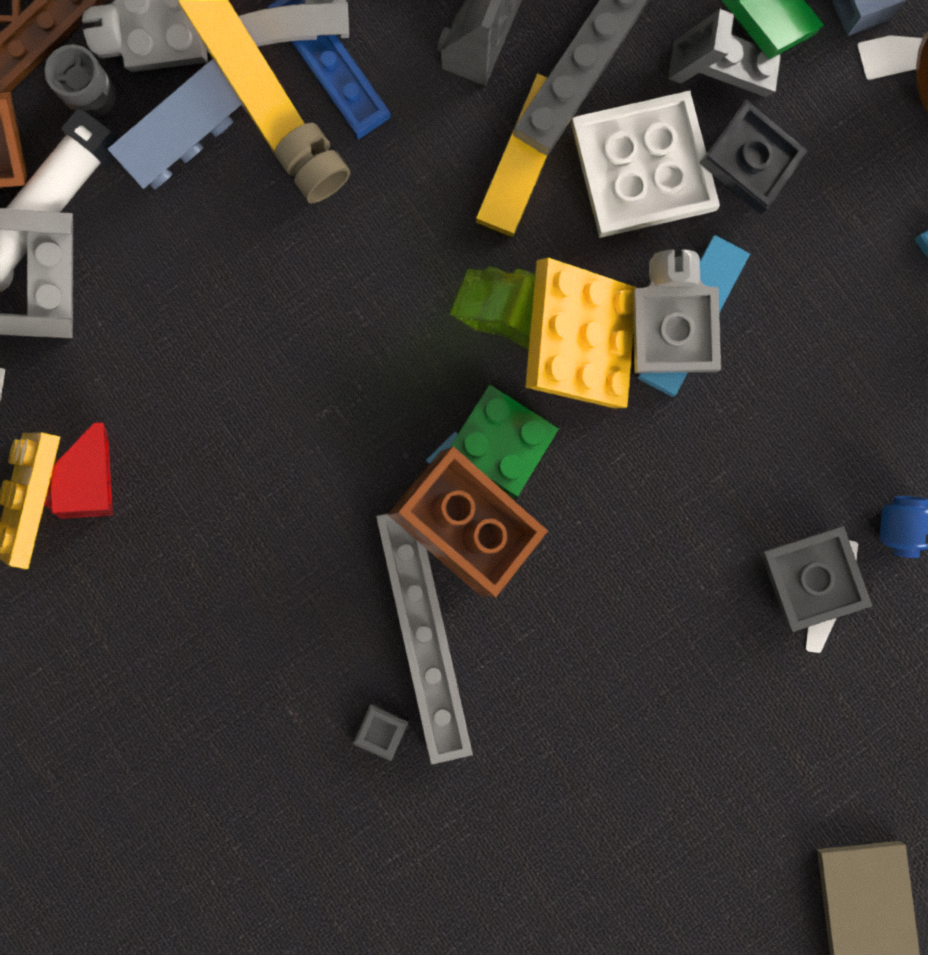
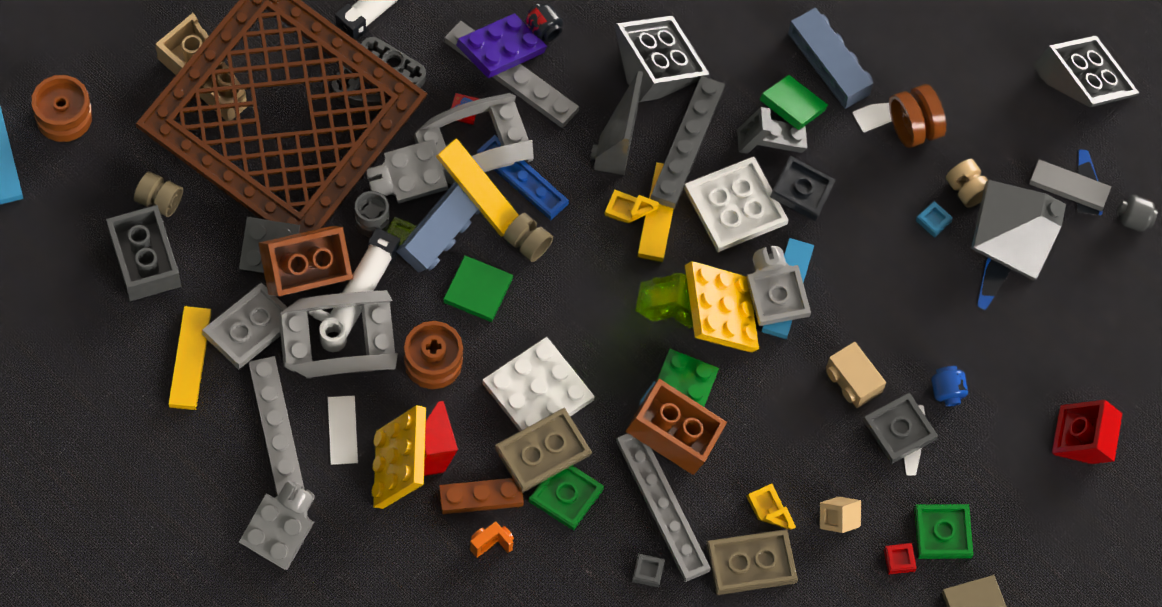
camera: 15 degrees left, 20 degrees down
(122, 115) = (401, 229): none -> clear neon green tile
(124, 330) = (433, 355): none -> dark orange wheel
(141, 640) = (486, 538): none -> orange bracket
(156, 565) = (480, 496): none -> dark orange plate
(223, 231) = (478, 288): none -> green tile
(258, 516) = (543, 450): none -> dark tan tile
(277, 411) = (537, 386): none -> white plate
(284, 586) = (567, 496): none -> green tile
(478, 141) = (629, 208): none -> yellow slope
(540, 748) = (752, 562): none -> dark tan tile
(585, 667) = (769, 507): none -> yellow slope
(691, 702) = (840, 514): none -> tan panel
(766, 481) = (855, 375): none -> tan brick
(766, 786) = (900, 558): none -> red tile
(843, 754) = (943, 531): none -> green tile

